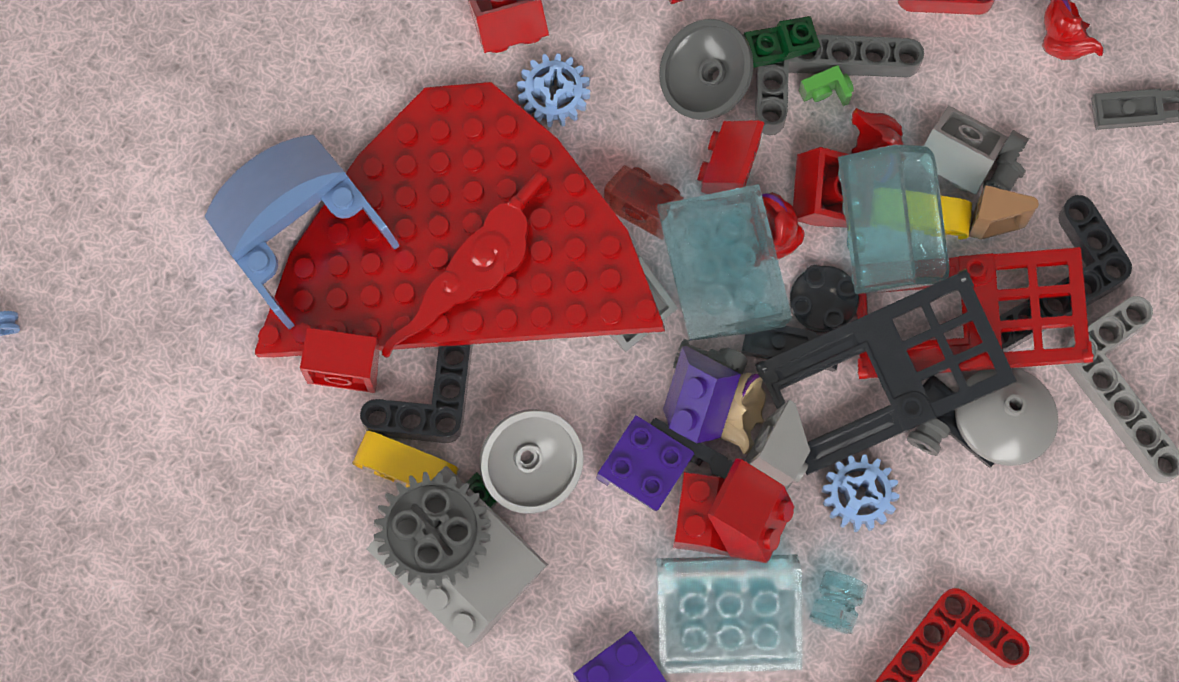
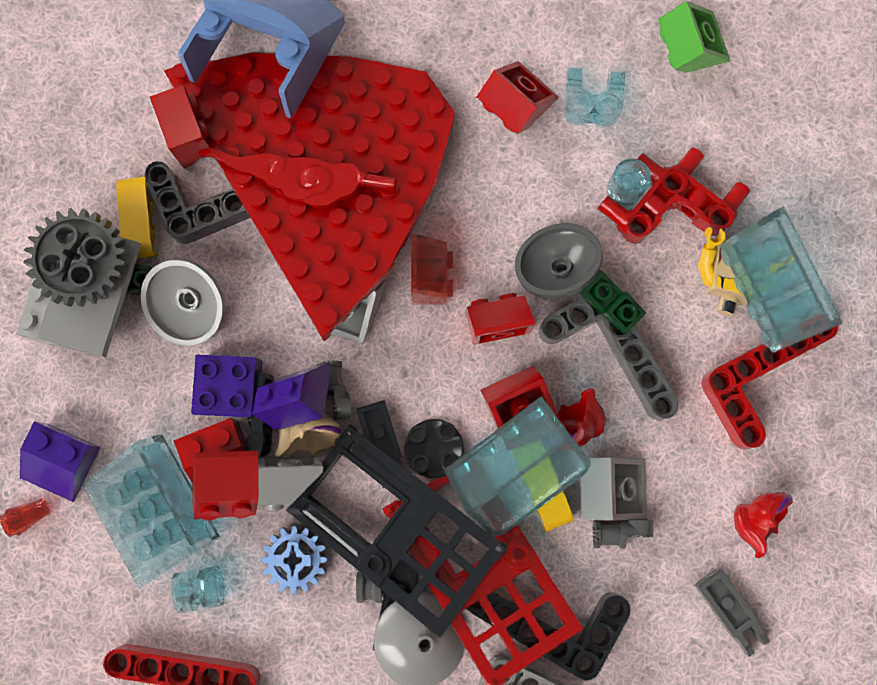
camera: 60 degrees right, 5 degrees up
(566, 92) = (476, 149): light blue gear -> none
(724, 264) = (403, 355): clear light blue slope -> none
(783, 224) = (463, 381): red hair -> none
(821, 86) = (600, 353): bright green bracket -> none
(1001, 212) = (577, 547): medium nougat tile -> none

